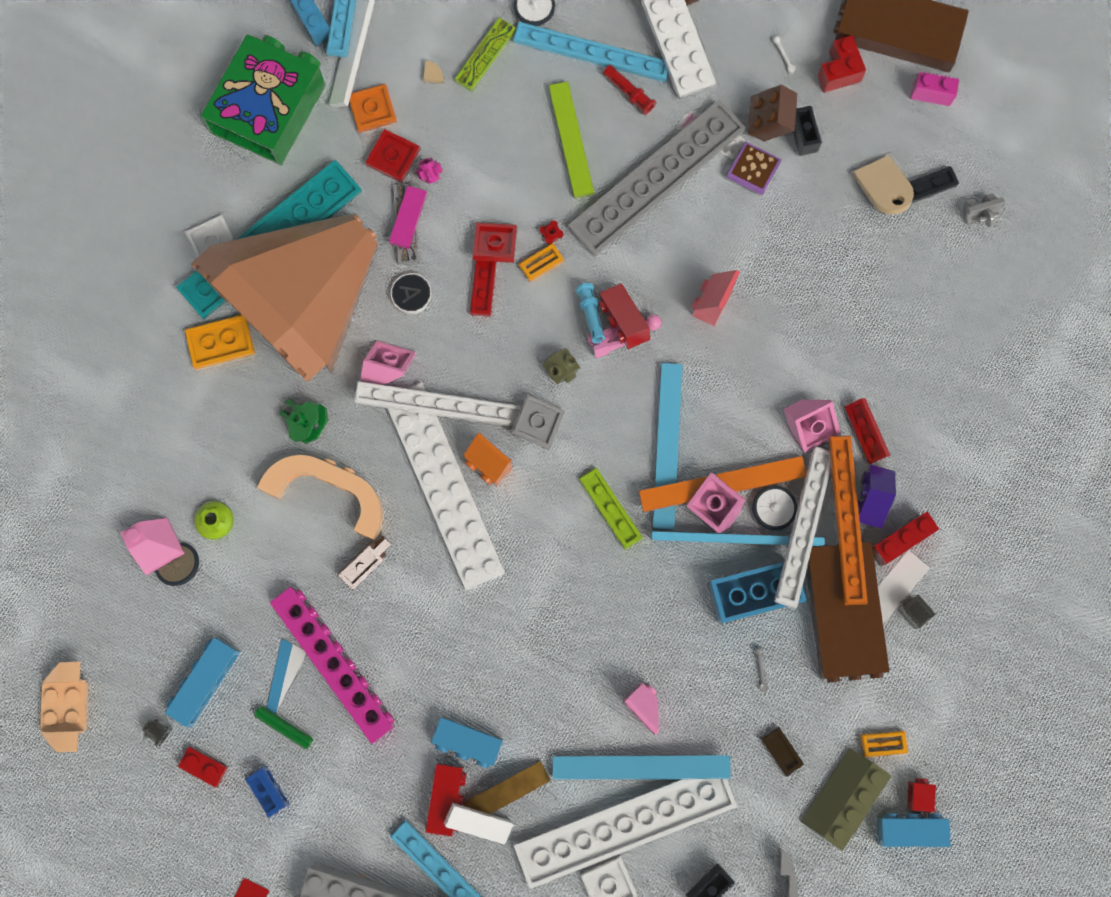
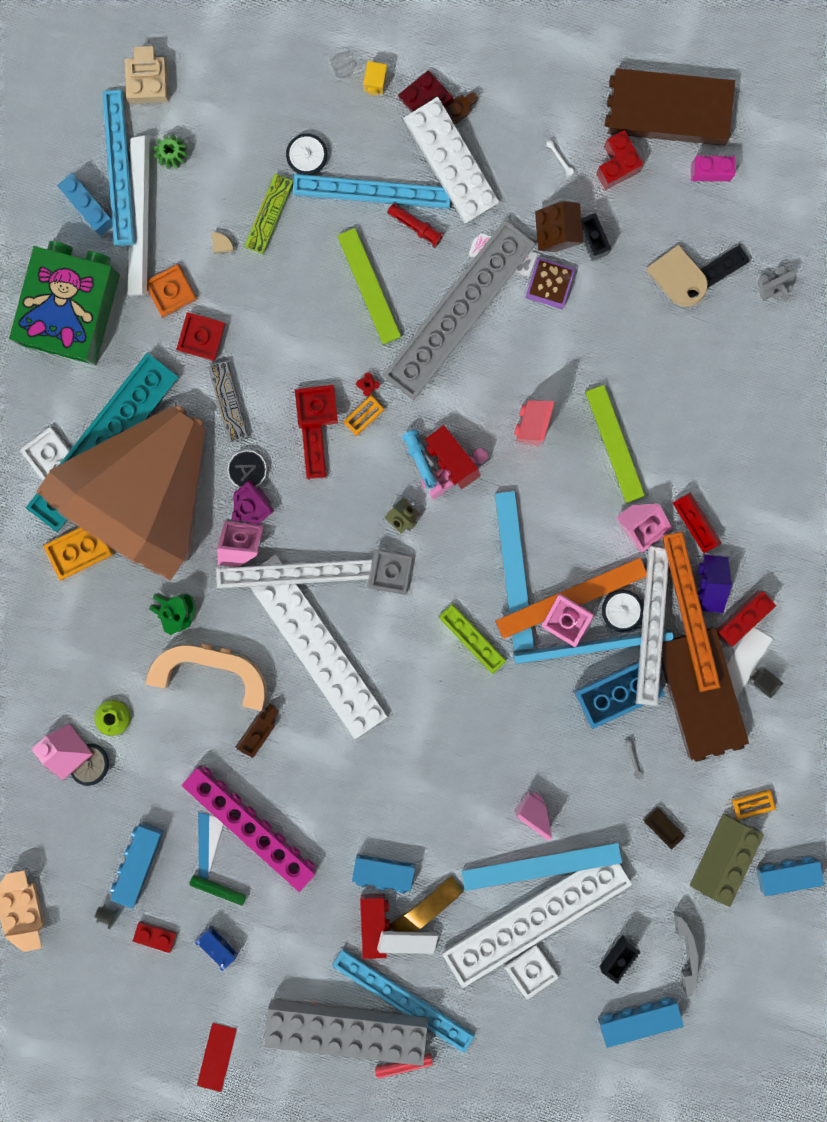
camera: 15 degrees left, 10 degrees up
(407, 327) = (251, 504): none -> magenta plate
(408, 217) = (228, 396): dark pink tile -> none
(429, 170) = (239, 346): dark pink gear -> none
(487, 460) = (351, 618): orange slope -> none
(794, 337) = (614, 444): none -> lime tile
(921, 795) = (793, 844): red brick -> none

